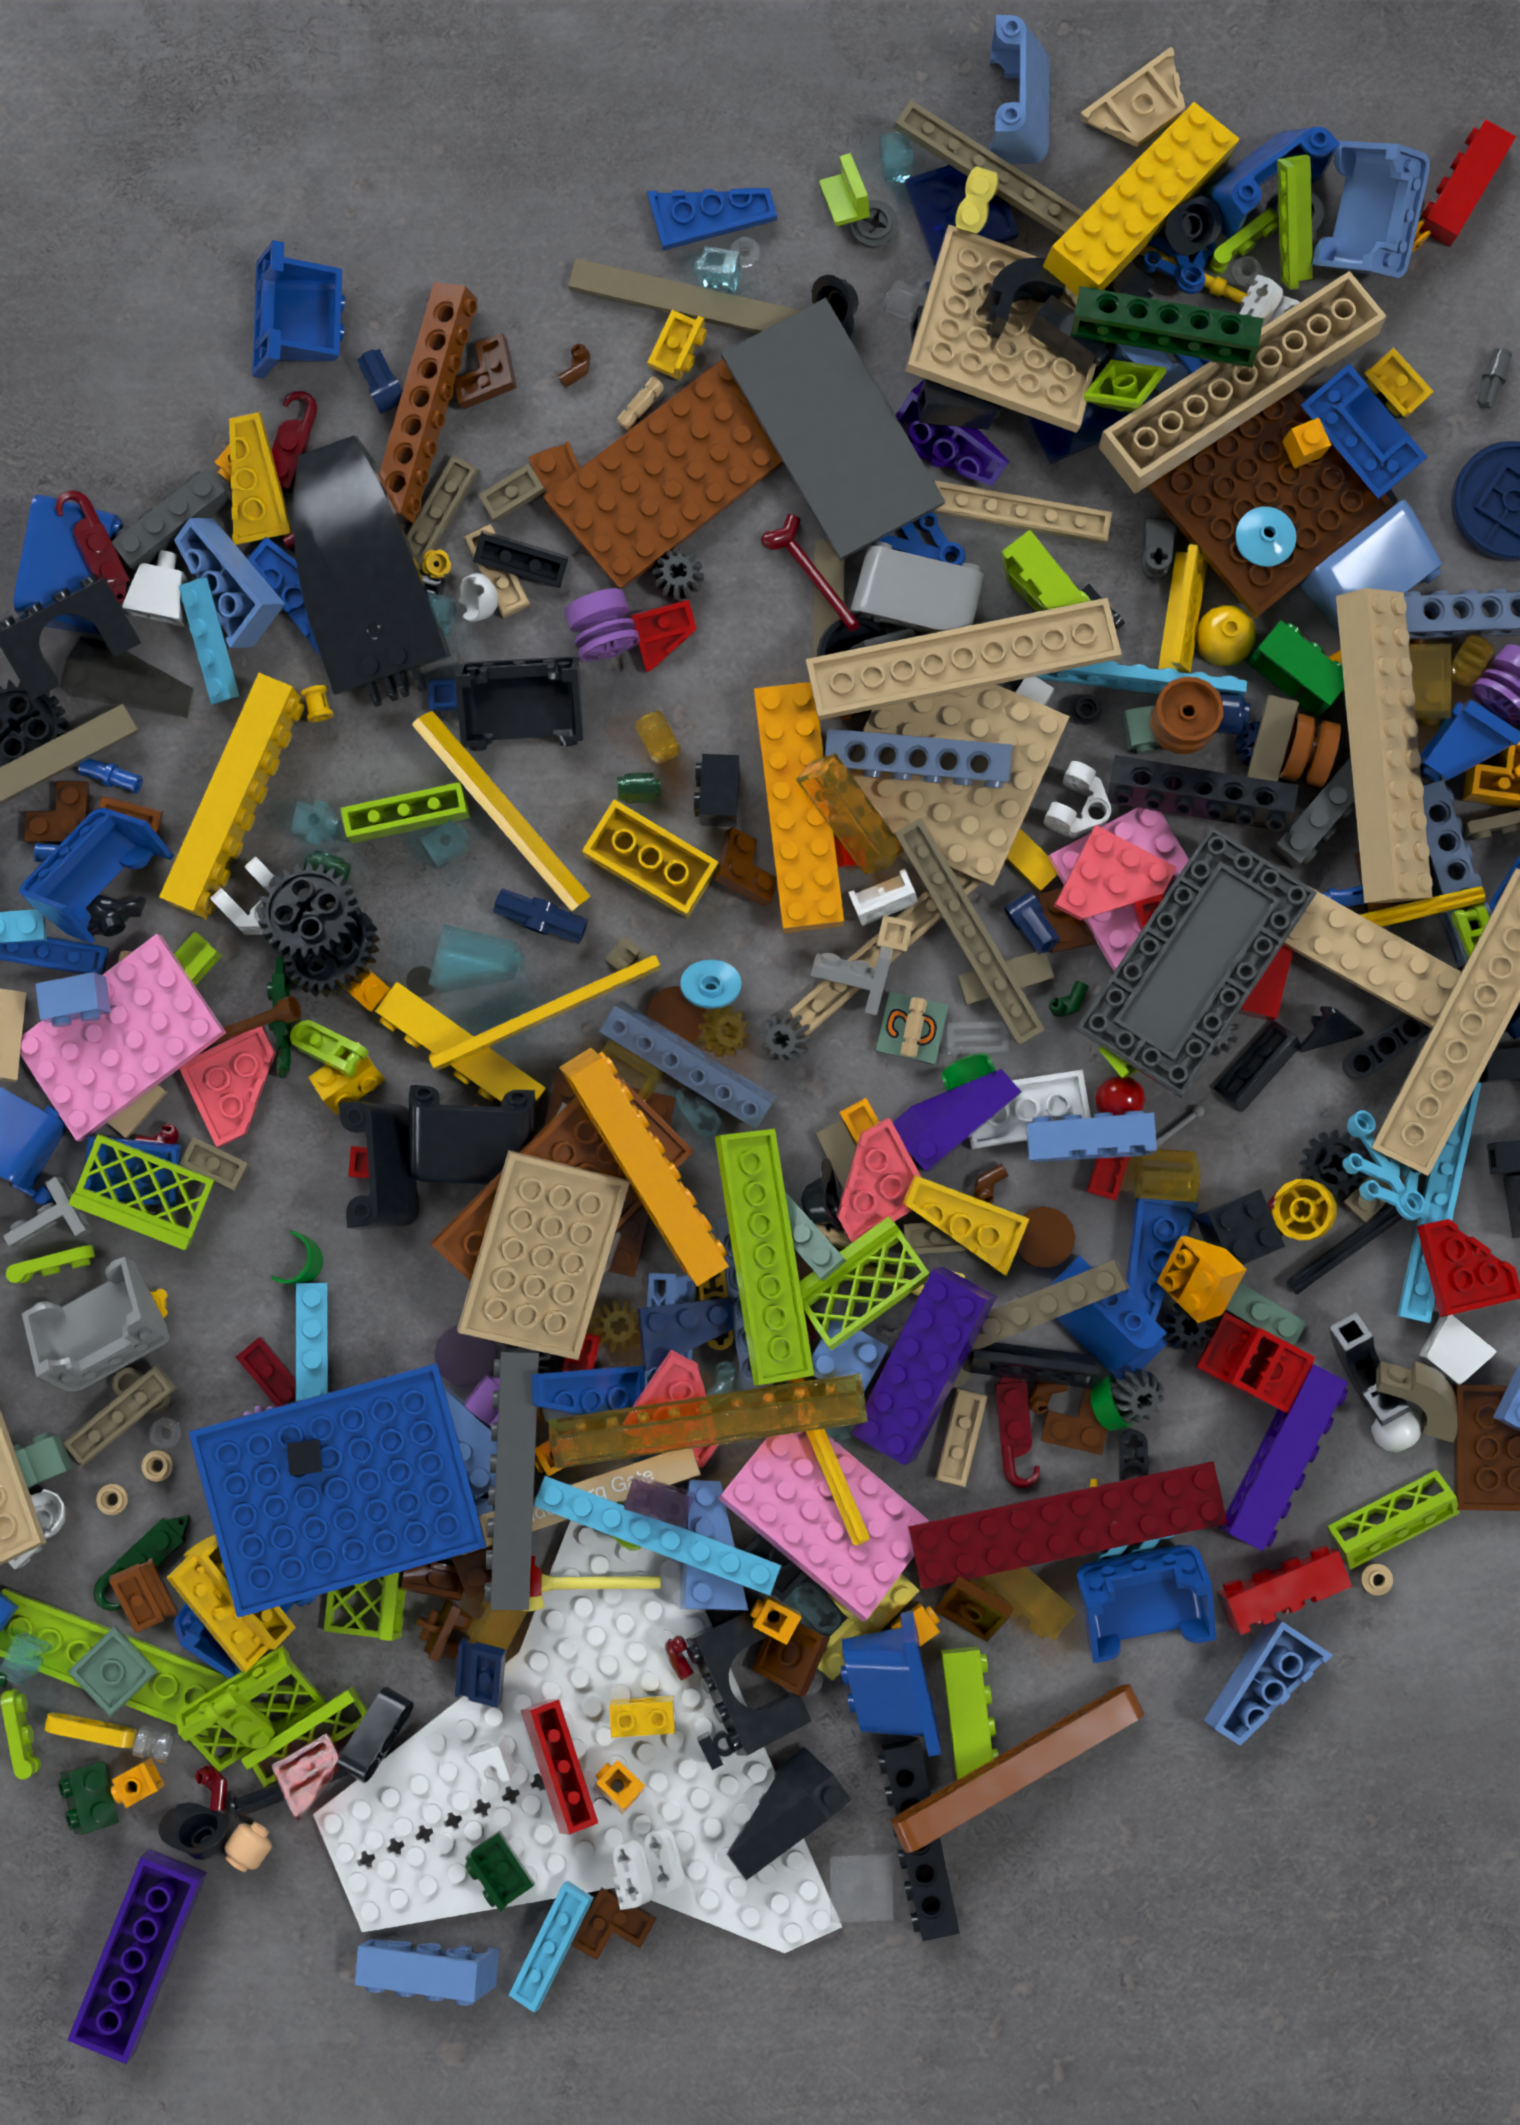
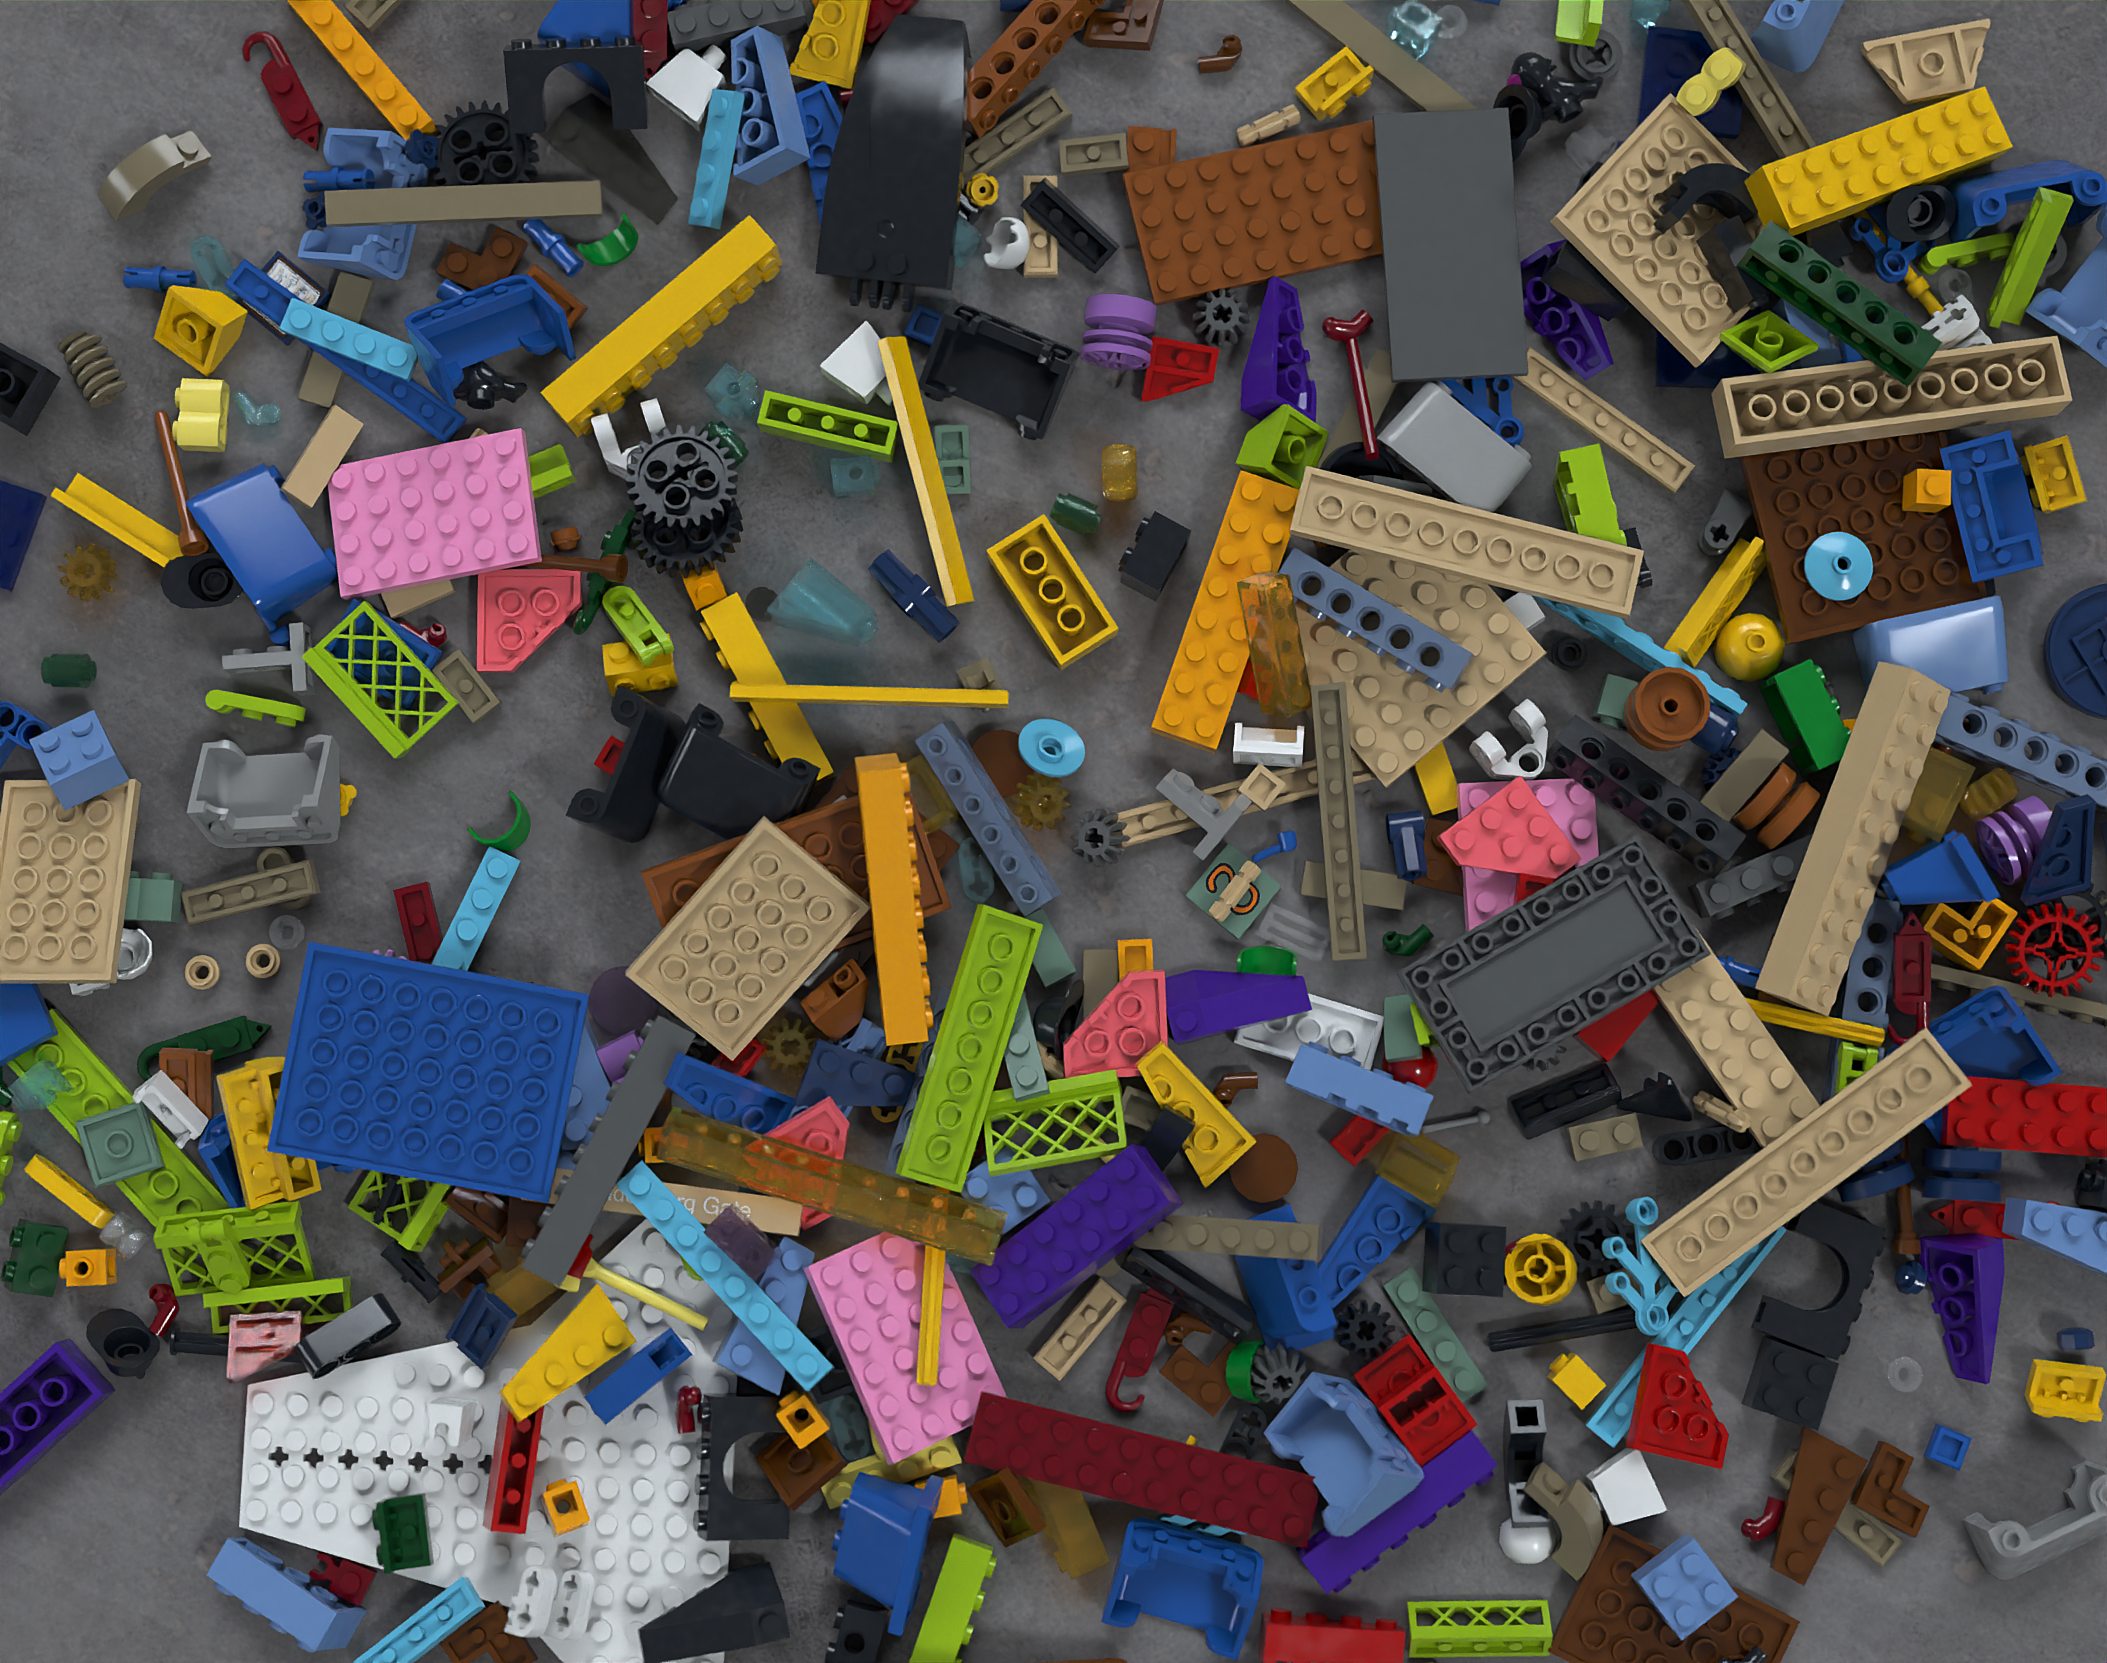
camera: 25 degrees right, 0 degrees up
(73, 998) = (406, 453): medium blue brick -> none
(141, 1621) = (171, 1107): none -> white hinge
(160, 751) = (613, 247): none -> green helmet
(235, 1005) = (565, 538): none -> dark orange plate
(247, 1846) = (167, 1384): light nougat head -> none
(304, 1457) = (411, 1023): black tile -> none
(317, 703) = (794, 273): yellow bush -> none
(355, 1606) = (390, 1198): none -> black axle
(401, 1656) = (412, 1271): none -> black pin
(407, 753) = (859, 366): none -> white torso
(472, 1930) = (349, 1579): none -> dark red plate
(518, 789) = (954, 457): none -> sand green slope
(565, 1654) = (574, 1350): none -> yellow wing
(626, 1650) = (637, 1376): none -> blue slope
(640, 1270) = (838, 1001): none -> dark orange slope
(642, 1716) = (621, 1450): yellow brick -> none
(712, 1750) = (674, 1517): black tile -> none
(725, 1379) = (871, 1153): clear light blue arm -> none
(737, 871) = (1134, 649): reddish brown plate -> none
(742, 596) = (1276, 359): none -> dark purple wedge
(778, 654) = (1282, 447): none -> lime slope
(793, 1153) = (1050, 956): none -> sand green slope
(859, 268) = (1557, 94): none -> black animal
(935, 968) = (1286, 843): none -> blue hand
(955, 1248) = (1167, 1135): none -> black slope
(1099, 1073) = (1399, 1030): none -> sand green slope
(1201, 1277) = (1401, 1287): light orange slope -> none
(1222, 1428) = (1347, 1448): none -> medium blue windscreen
(1302, 1079) = (1604, 1137): none -> dark tan plate
(1373, 1283) = (1575, 1379): none -> yellow brick
(1385, 1014) = (1722, 1111): none -> tan axle
(1482, 833) = (1911, 975): none -> dark red plate

